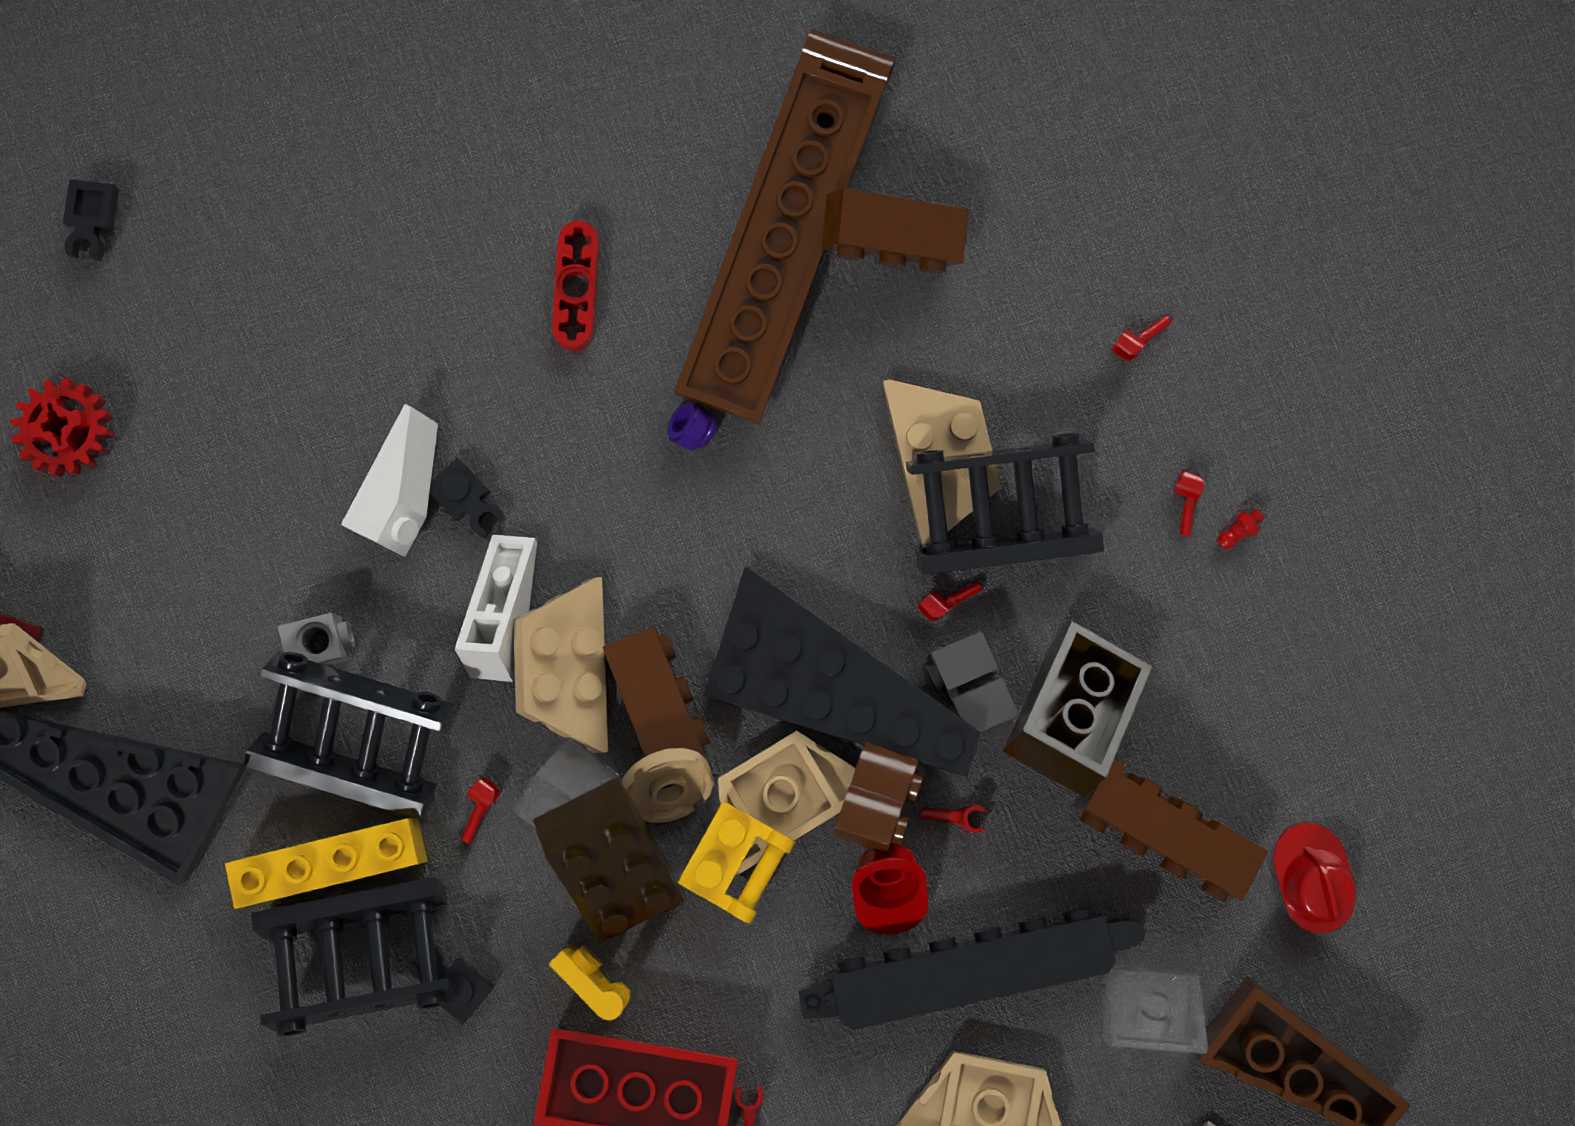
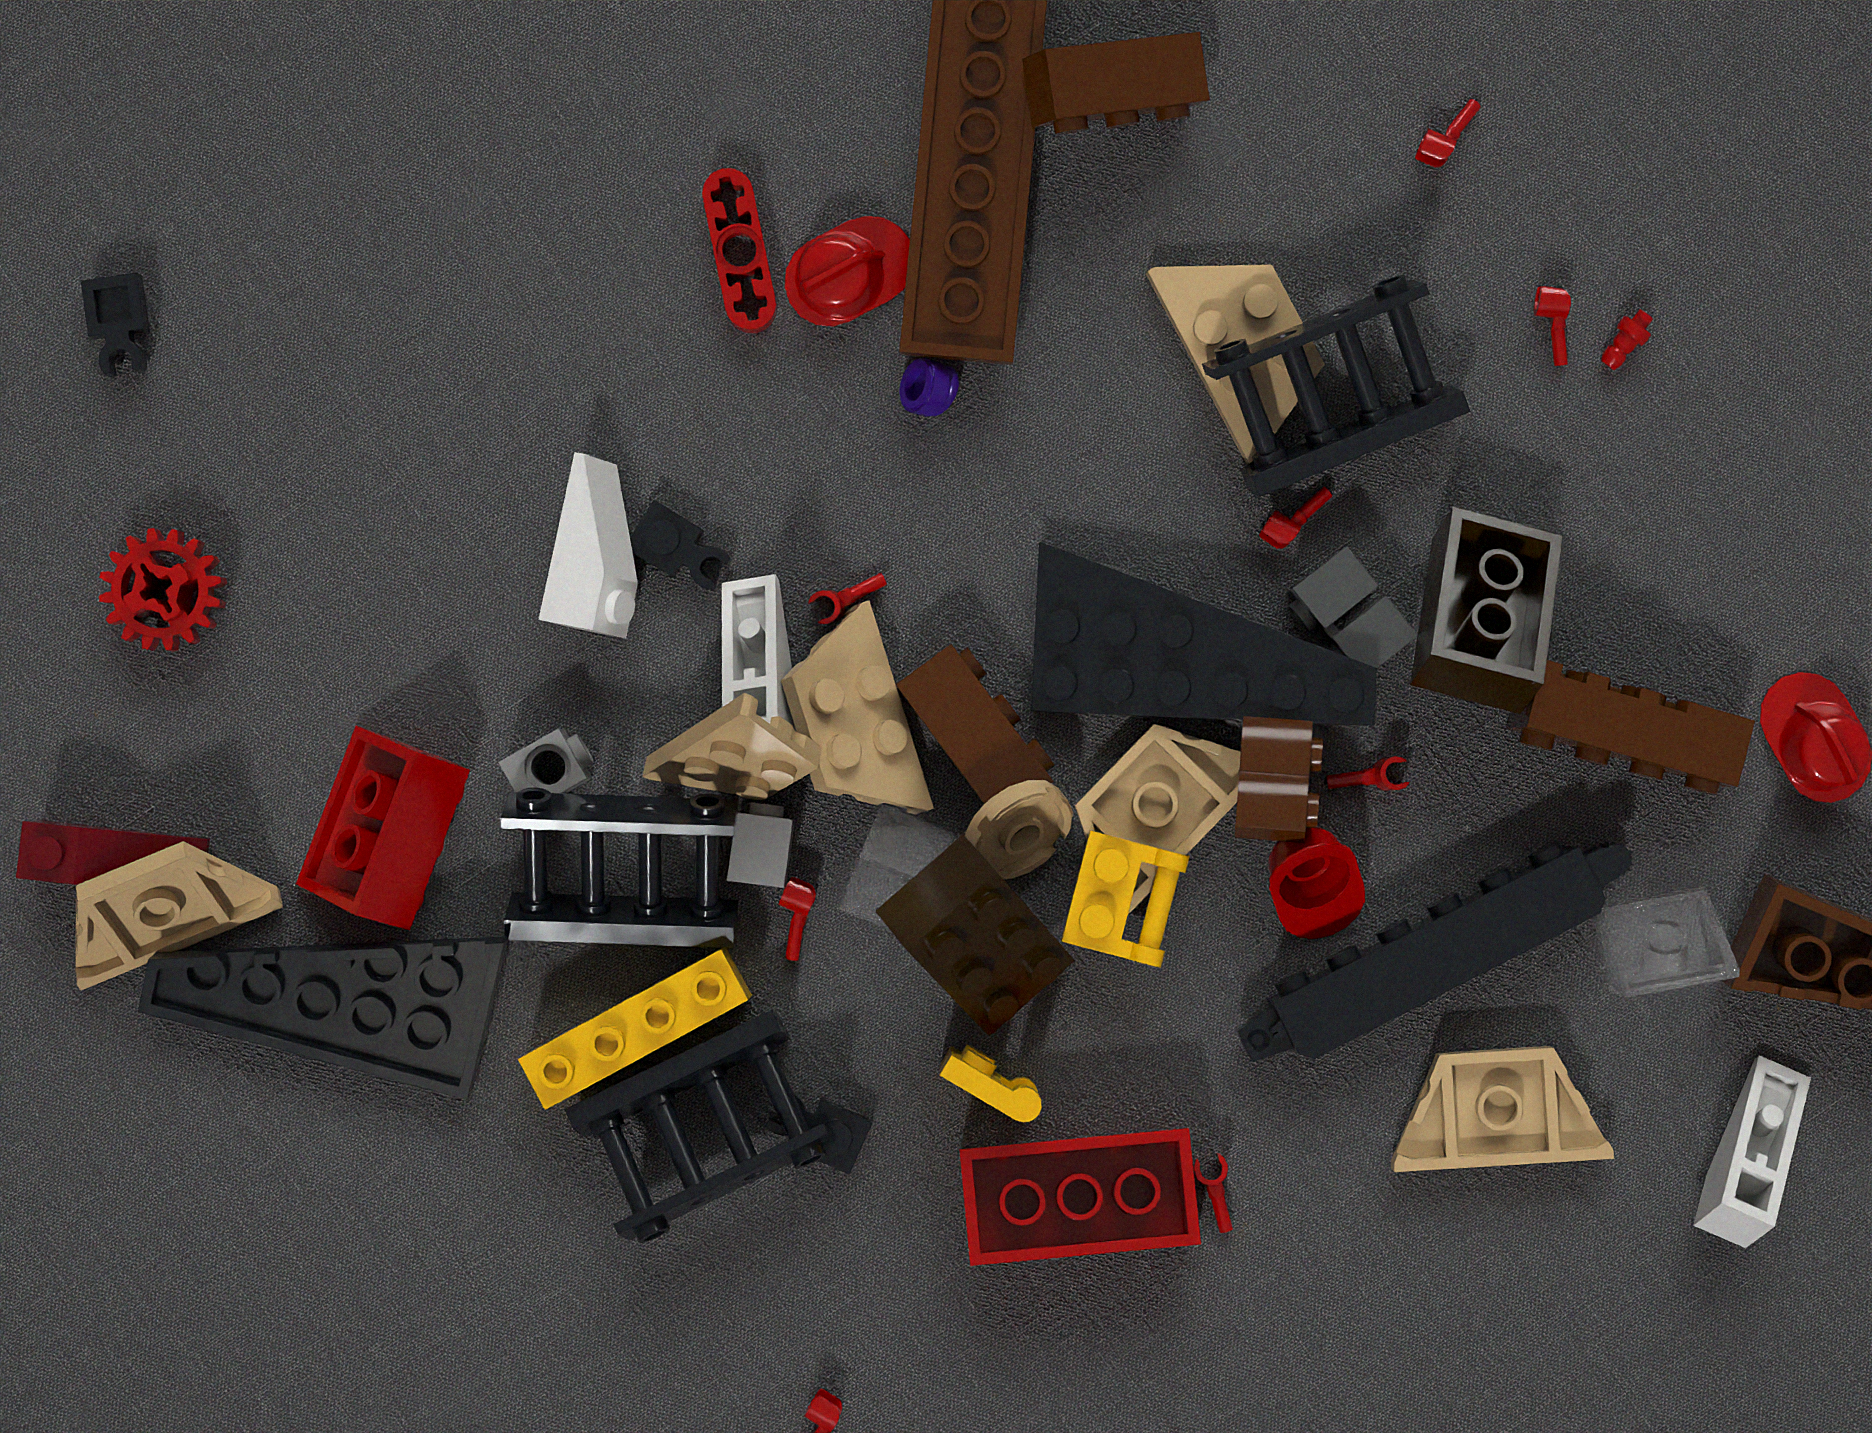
camera: 15 degrees left, 5 degrees up
(177, 656) = (382, 828): none -> red slope
(462, 667) = (736, 753): none -> tan wing
(465, 746) = (761, 846): none -> light grey brick
(585, 570) = (847, 596): none -> red hand
(653, 323) = (848, 271): none -> red piece

